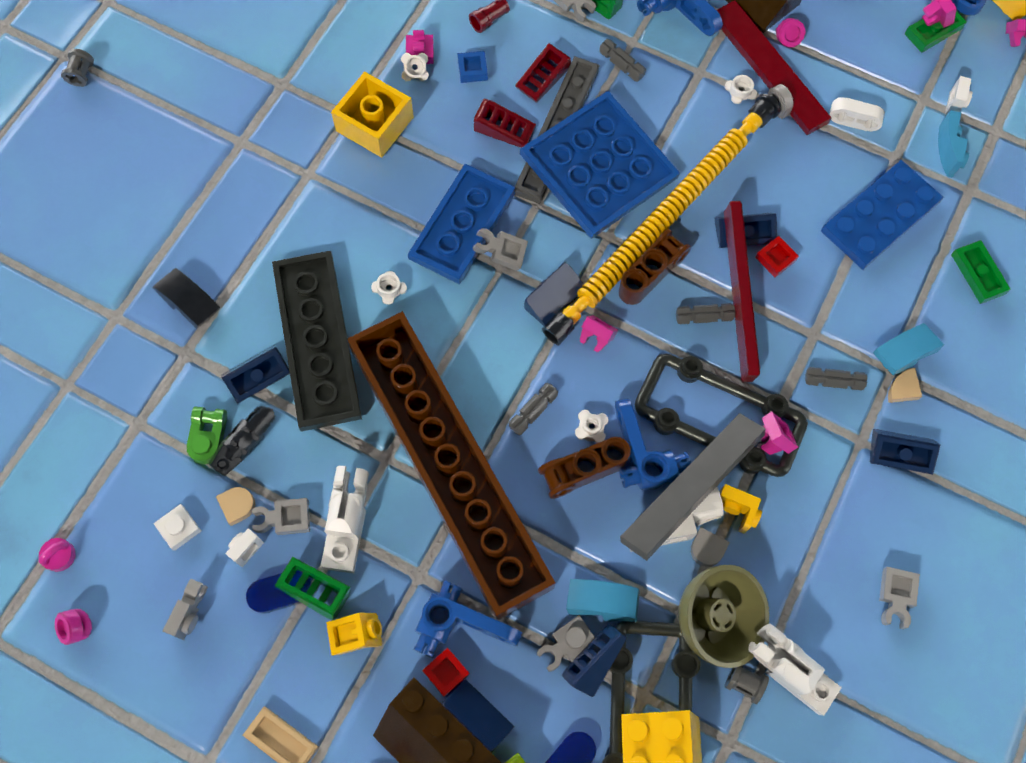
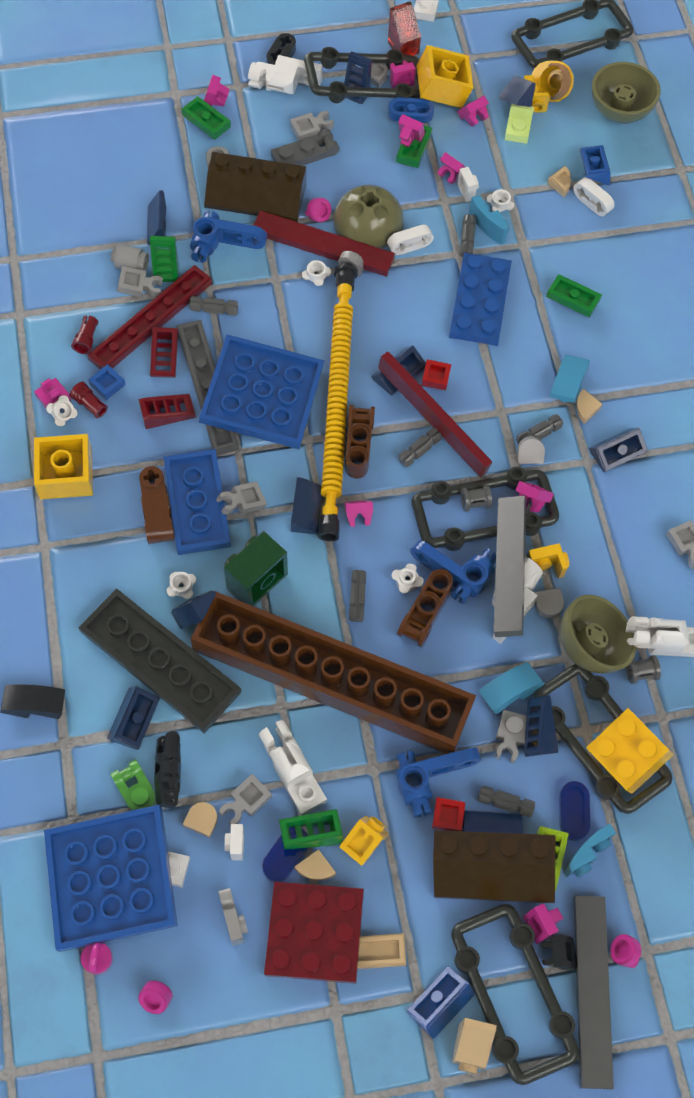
camera: 40 degrees left, 5 degrees down
(118, 496) = (109, 878): none -> blue plate
(243, 682) = (314, 932): none -> dark red plate
(293, 624) = (315, 867): none -> tan tile
(374, 314) = (193, 610): none -> dark blue slope
(421, 201) = (155, 506): none -> reddish brown piece
(444, 66) = (84, 396): none -> dark red pin
(457, 318) = (255, 569): none -> dark green brick
(510, 702) = (506, 801): none -> dark grey axle
(562, 35) = (154, 314): none -> dark red tile
(718, 398) = (476, 498): none -> dark grey bush
(810, 391) = (530, 451): none -> light grey tile
(835, 67) = (368, 215): none -> olive piece
(920, 145) = (468, 234): none -> dark grey axle
(955, 70) = (451, 165): none -> dark pink tile
(980, 133) = (500, 200): none -> white plate

